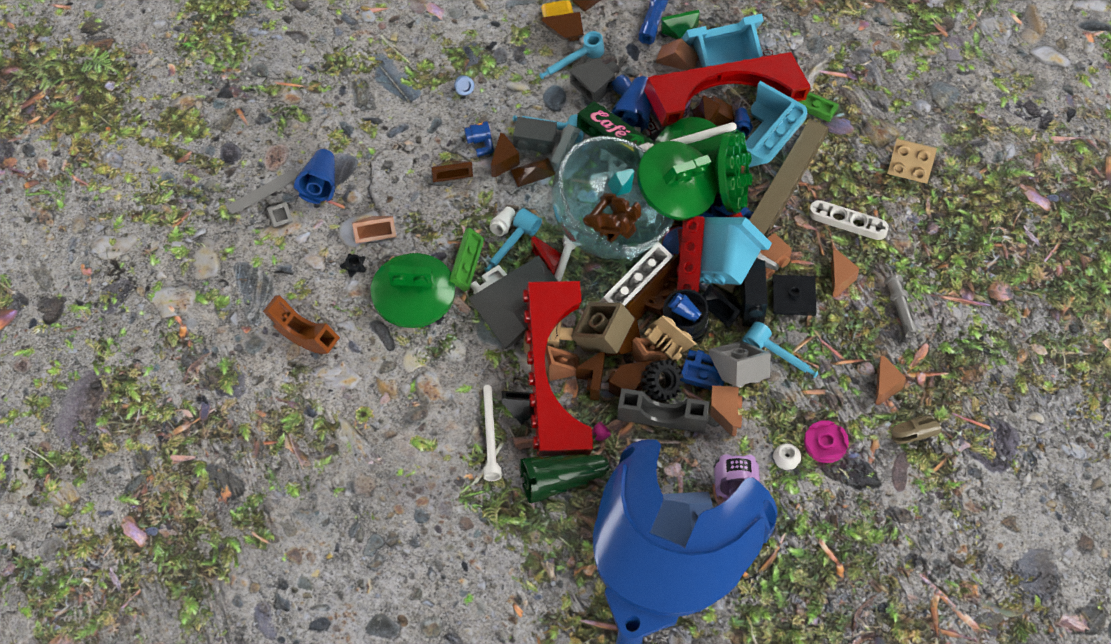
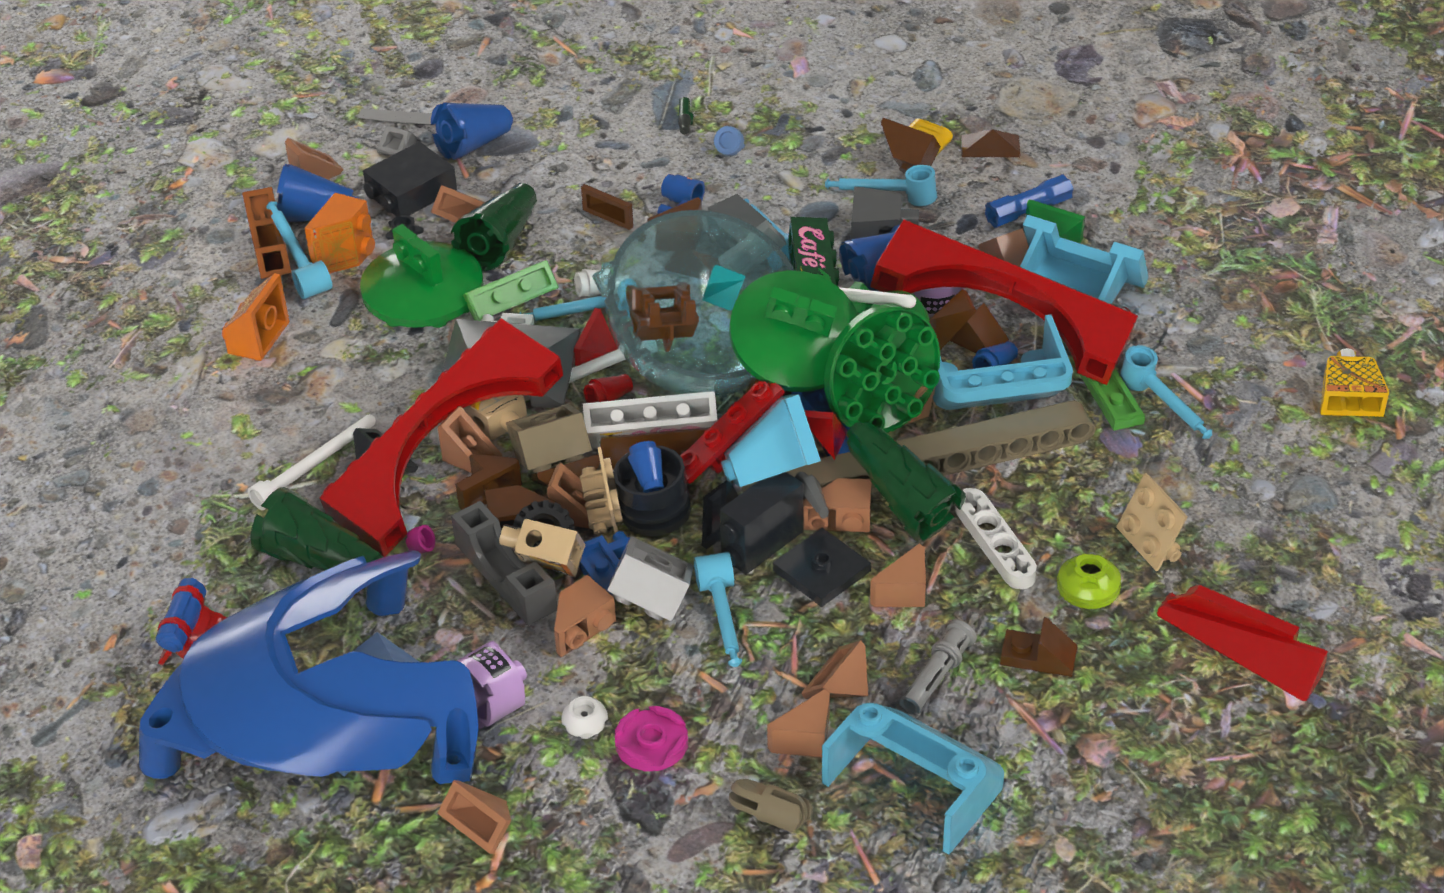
camera: 45 degrees right, 15 degrees down
(253, 264) = (311, 159): none -> nougat slope
(288, 282) = (305, 193): none -> blue cone
(324, 232) = (408, 179): none -> black brick
(341, 292) = (340, 233): none -> orange slope
(351, 331) = (309, 277): none -> medium azure piece
(359, 379) = (257, 321): none -> orange slope
(413, 226) = (494, 226): none -> dark green cone
(418, 85) = (685, 116): none -> piece
(573, 567) = (185, 619): none -> piece
(587, 278) = (607, 388): none -> red cone
(685, 386) = (559, 547): none -> tan torso
(799, 223) = (913, 489): none -> dark green cone
(804, 542) = (476, 814): none -> nougat slope
(814, 77) = (1140, 373): none -> medium azure piece
(865, 342) = (842, 674): none -> nougat slope
(906, 21) = (1353, 386): none -> yellow torso
(908, 217) = (1087, 589): none -> lime piece
(924, 351) = (963, 767): none -> medium azure windscreen
(929, 264) = (1043, 652): none -> reddish brown slope
(1002, 188) = (1248, 637): none -> red wedge

